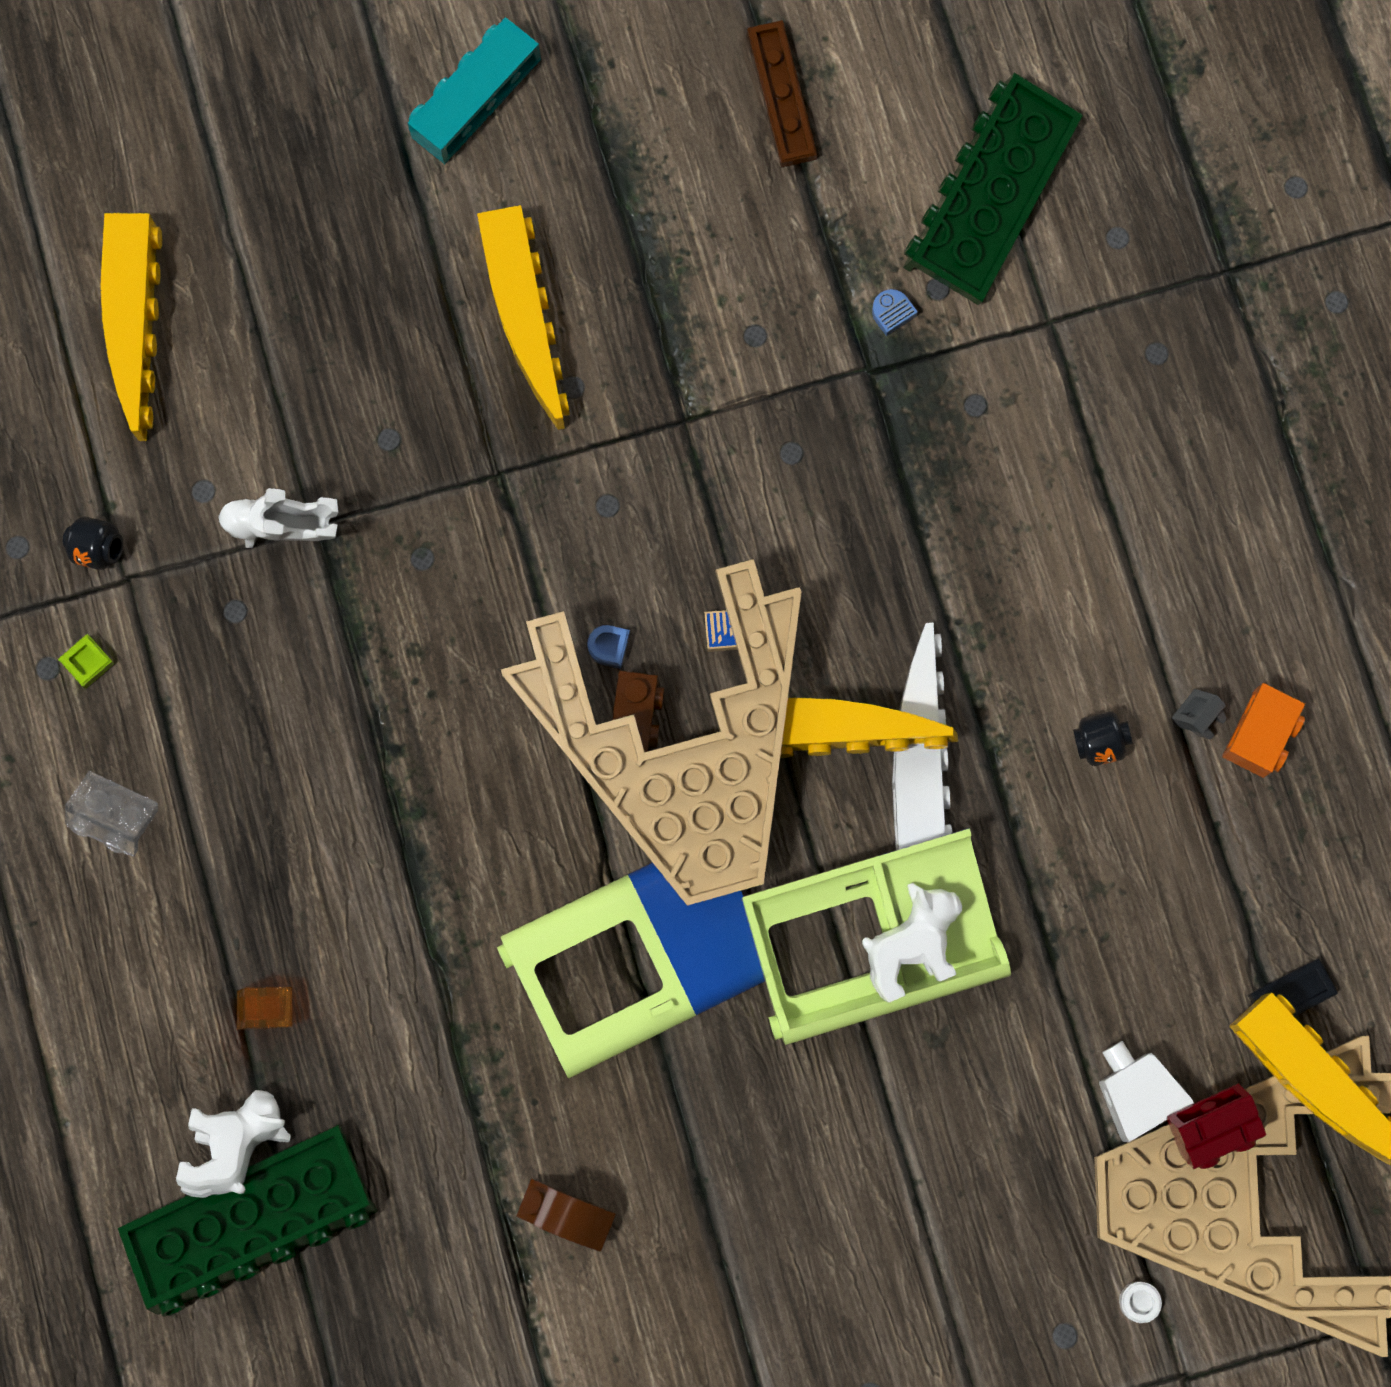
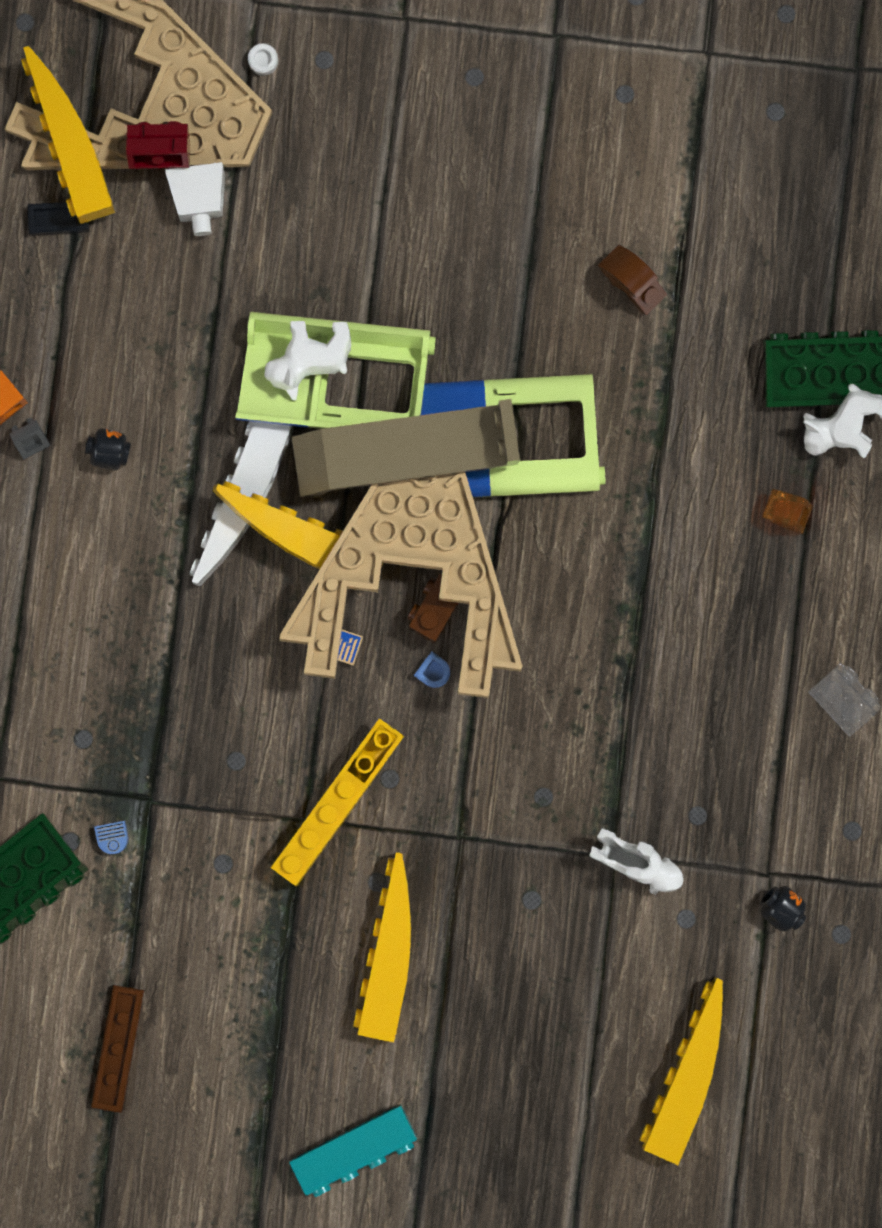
camera: 155 degrees left, 5 degrees up
(86, 661) = (821, 822): lime tile -> none
(654, 445) = (337, 802): none -> yellow slope
(749, 877) = (405, 449): none -> dark tan panel

